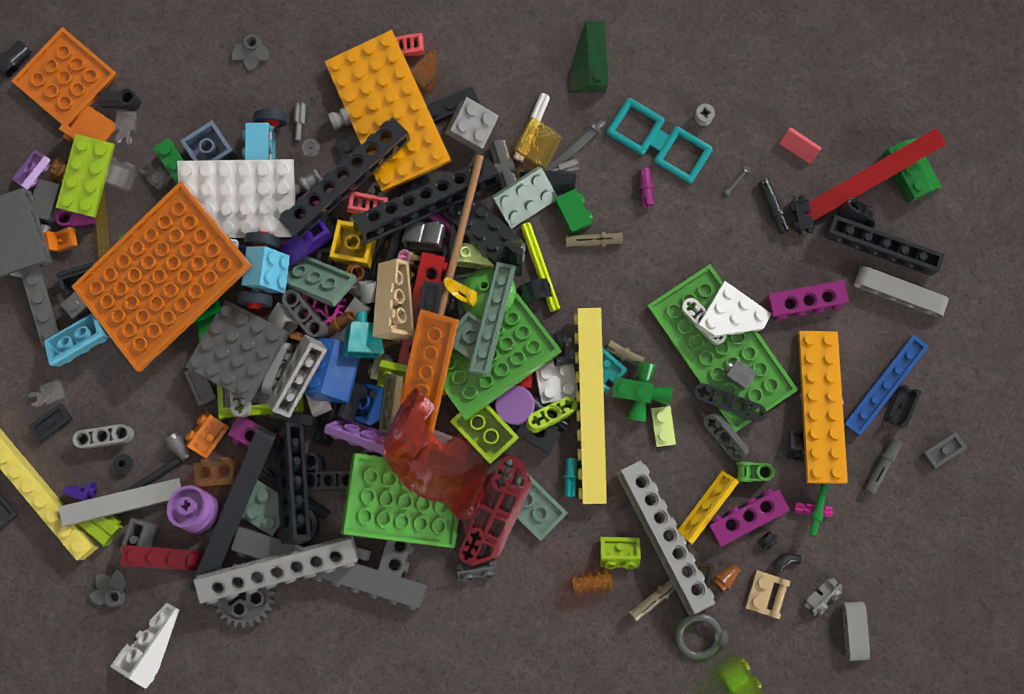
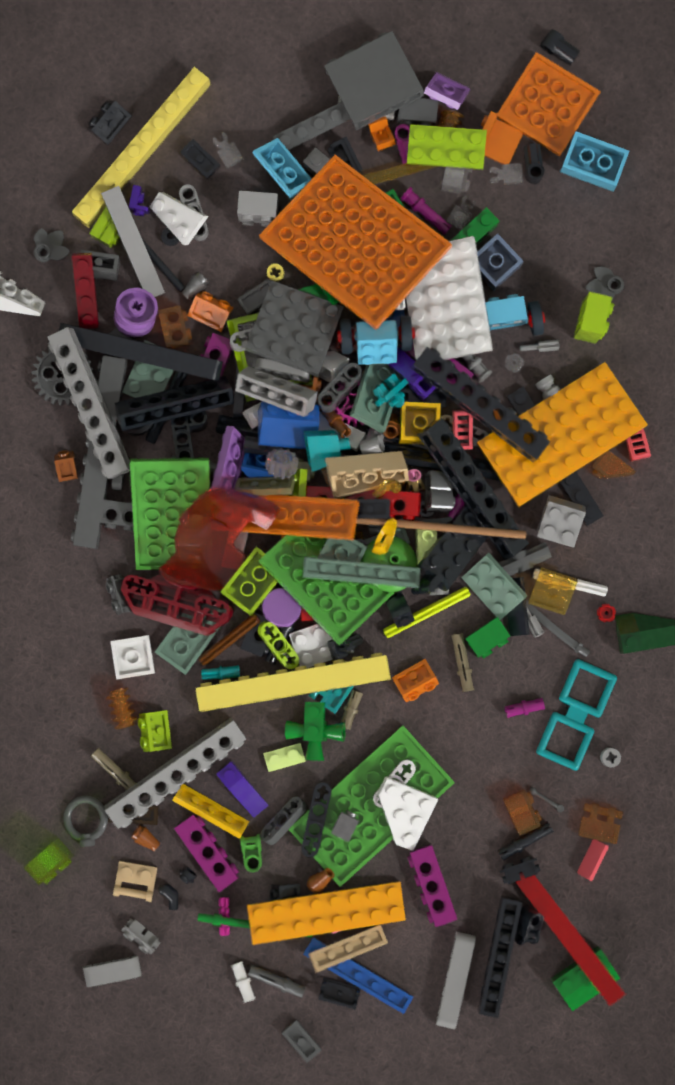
camera: 80 degrees right, 5 degrees up
(104, 451) = (179, 218): none -> white wing
(109, 370) = (257, 207): none -> light grey brick
(128, 41) = (594, 161): none -> medium azure brick
(138, 213) = (418, 205): none -> magenta pin
(174, 361) = (277, 267): none -> light yellow bush
(279, 62) = (593, 317): none -> lime brick
(318, 263) = (384, 395): none -> teal hips
(337, 605) = (65, 465): none -> dark orange bracket
(370, 382) = (281, 463): none -> clear gear
(410, 282) = (388, 485): none -> clear yellow arm
(539, 463) = (229, 639): none -> reddish brown axle
(542, 564) = (132, 657): none -> white plate
(566, 93) = (611, 612): none -> red plate
(605, 286) = (415, 681): none -> orange bracket
(689, 473) = (242, 789): none -> dark purple slope
(746, 204) = (521, 811): none -> clear orange brick
(772, 135) = (600, 829): none -> clear orange plate
(790, 410) = (318, 881): none -> dark orange cone
(860, 390) = (348, 948): none -> tan plate
(880, 500) = (243, 981): none -> white pin

